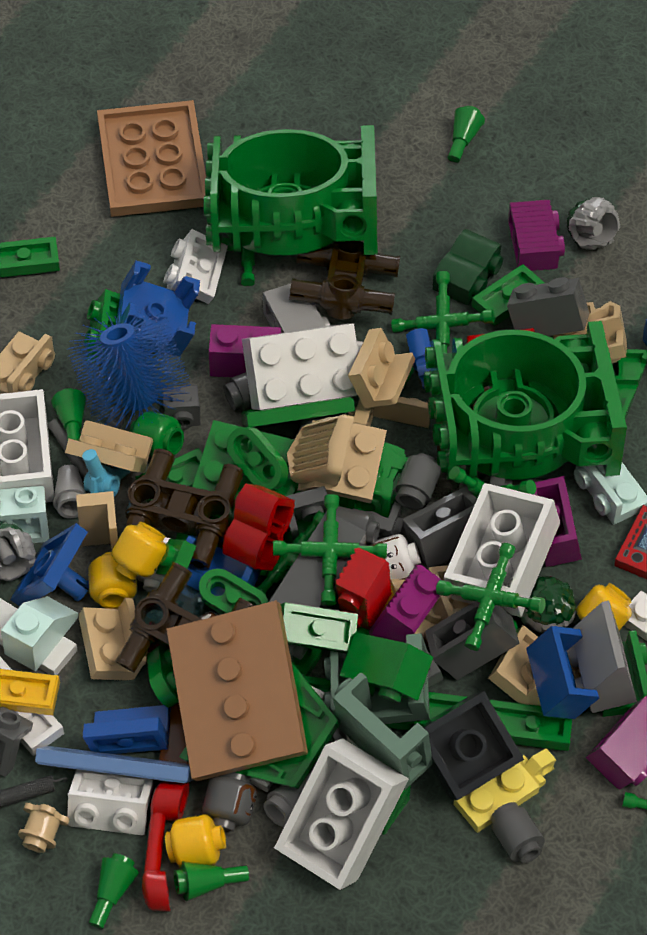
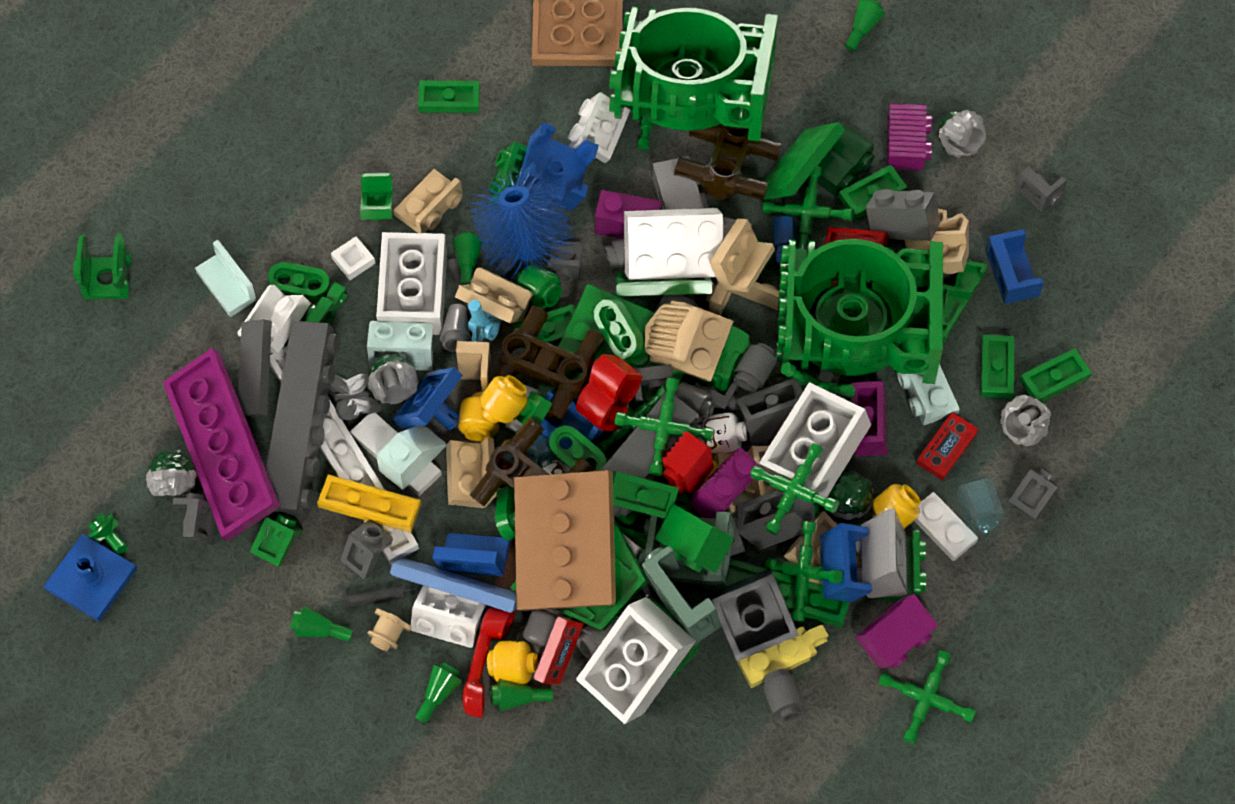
camera: 10 degrees right, 10 degrees up
(248, 818) = (558, 650): none -> red tile
(426, 269) = (801, 160): none -> green tile
(516, 688) = (804, 570): none -> green piece

